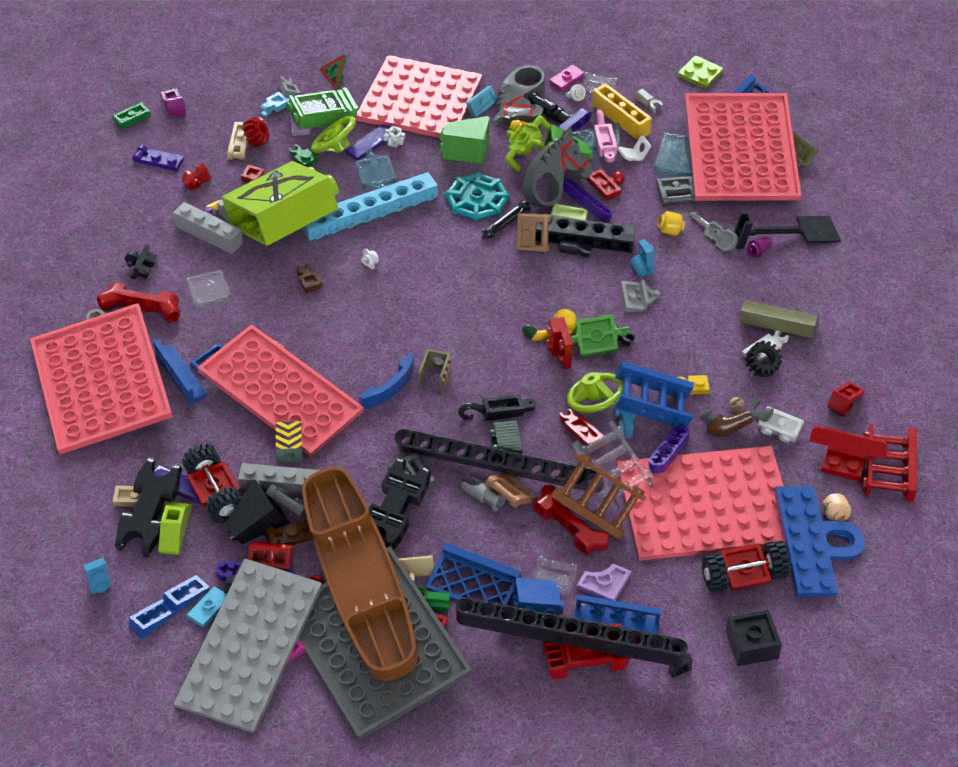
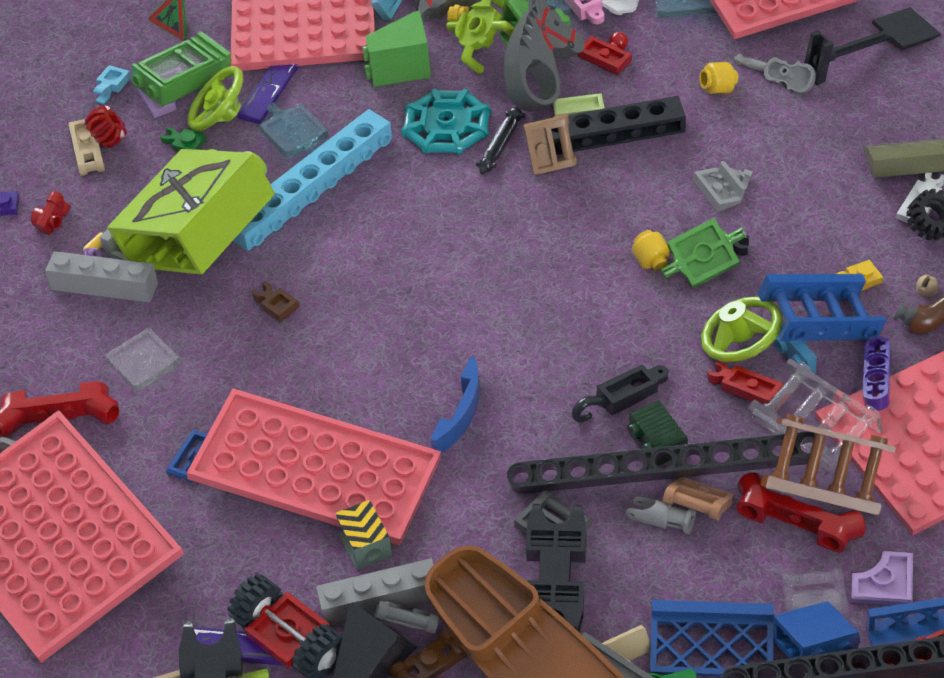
camera: 15 degrees left, 0 degrees up
(137, 261) = (25, 353): black hips -> none
(179, 372) = (159, 489): blue fence -> none
(251, 173) = (127, 186): plate -> none
(288, 88) = (119, 57): light grey plate -> none
(369, 258) = (345, 248): white plate -> none
(394, 136) = (296, 76): white gear -> none
(428, 360) = (522, 357): olive piece -> none
(533, 334) = (616, 278): arm -> none
(559, 341) = (662, 276): red plate -> none
(575, 248) = (611, 148): black bar -> none
(587, 200) = (596, 83): dark purple beam -> none
(644, 262) = (712, 138): dark azure plate -> none
(675, 186) = (699, 28): dark grey plate -> none
(757, 247) = (843, 74): magenta cone -> none

